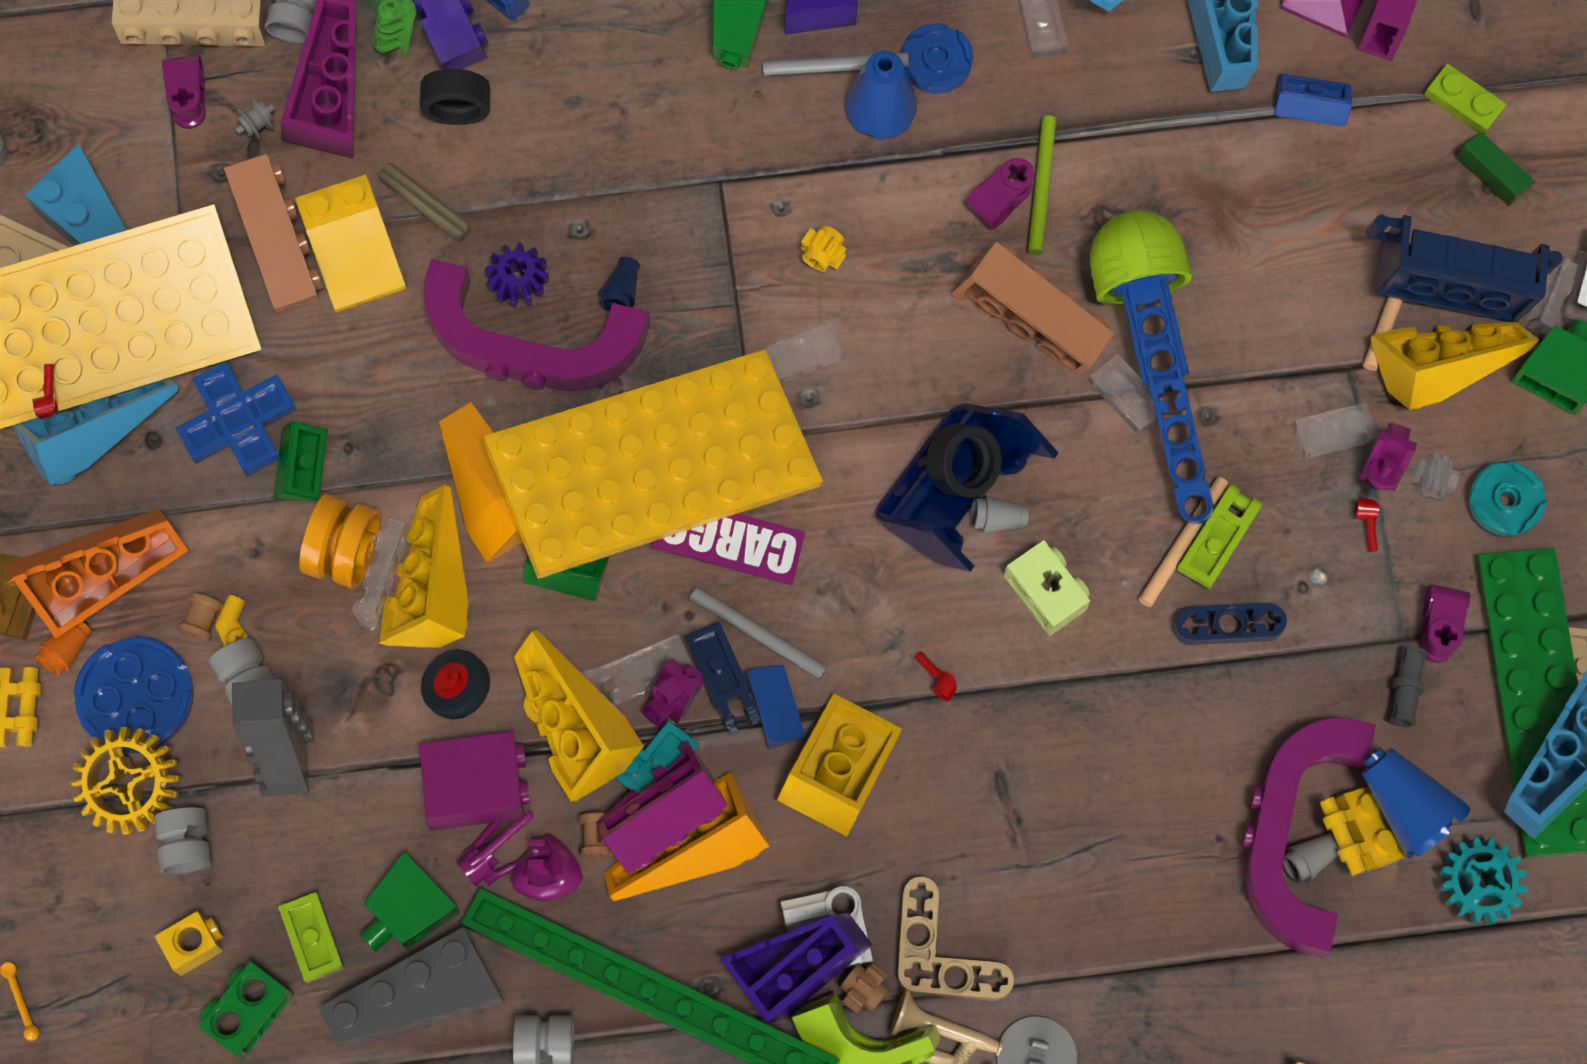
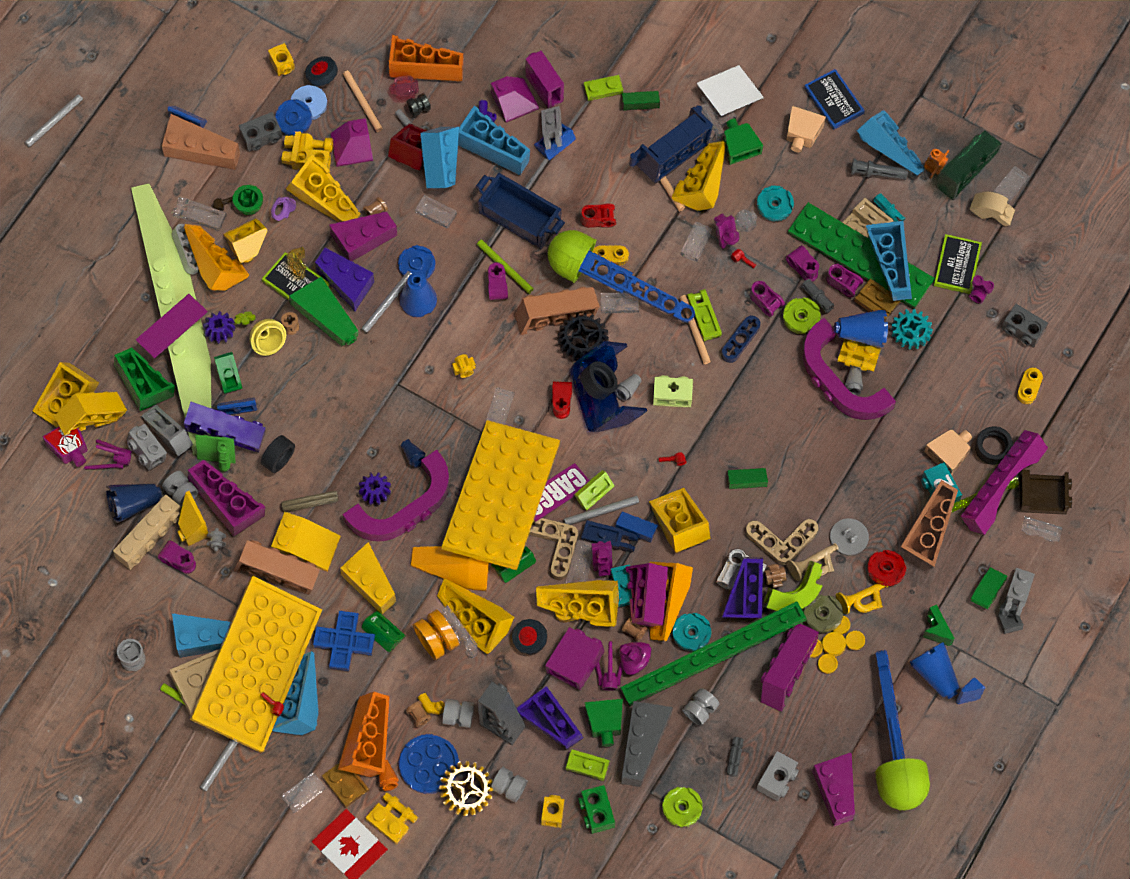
camera: 50 degrees left, 5 degrees down
(254, 61) = (191, 522): none -> yellow slope
(340, 821) = (550, 718): none -> dark purple wedge
(361, 377) = (369, 579): none -> yellow wedge
(660, 908) = (691, 622): none -> teal plate
(662, 603) = (559, 536): none -> tan beam
(780, 595) = (594, 490): none -> lime plate
(898, 427) = (561, 397): none -> red piece
(1000, 364) = (569, 343): none -> black gear
(1001, 815) = (747, 478): none -> green slope
(1147, 128) = (519, 210): none -> dark blue container
(1196, 319) = (610, 253): none -> yellow plate
(1247, 254) = (599, 215): none -> red piece
(1327, 73) = (551, 126): none -> light grey hinge
(1331, 616) = (768, 301): none -> magenta piece
(1364, 673) = (798, 307): none -> lime plate
(1471, 714) = (844, 281): none -> magenta piece
(1485, 783) = (876, 297): none -> pearl gold plate

